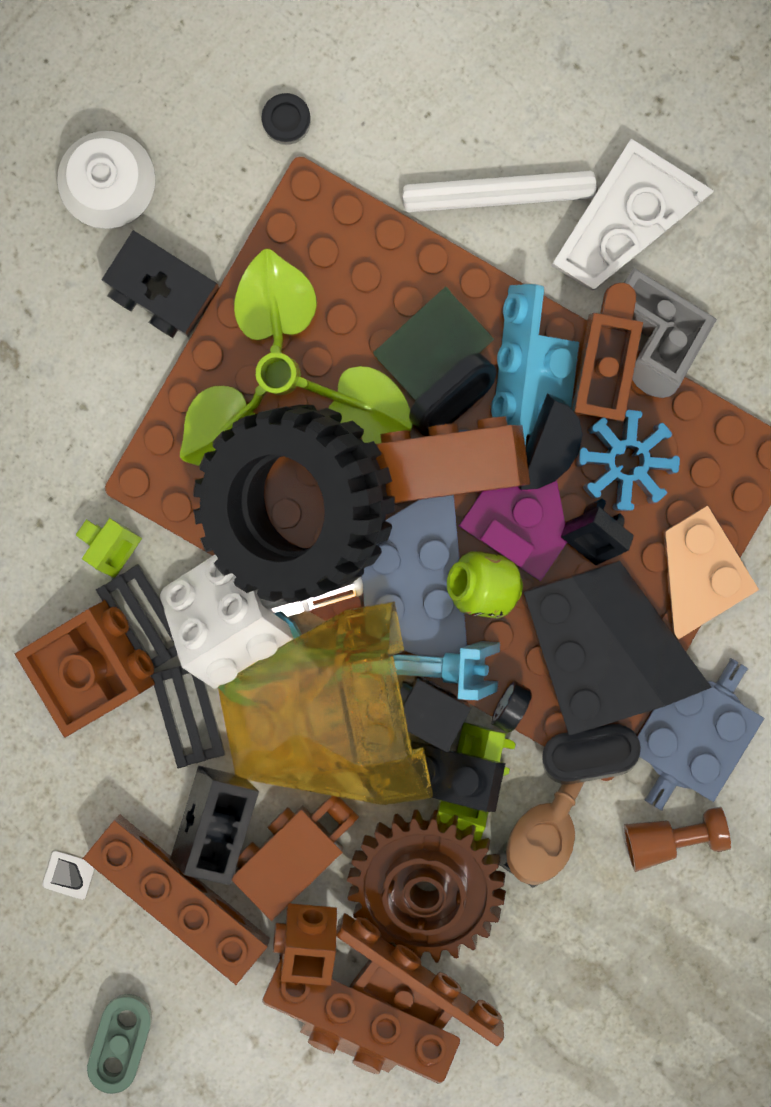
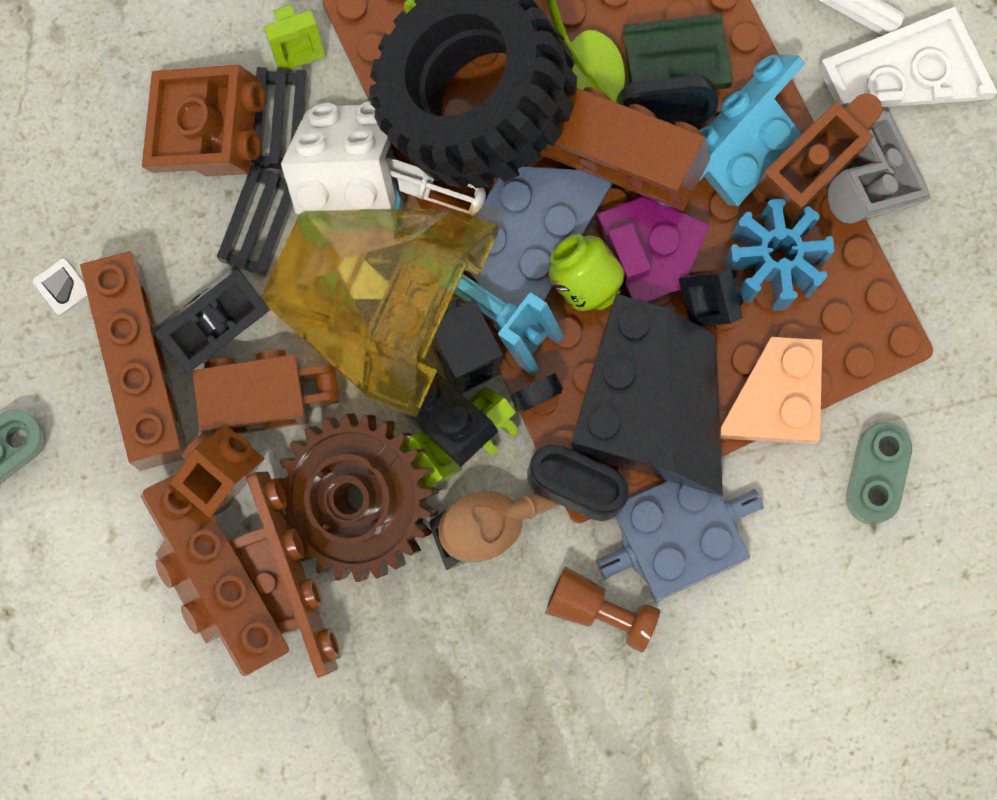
camera: 25 degrees right, 10 degrees down
(552, 443) = (725, 192): black tile -> none

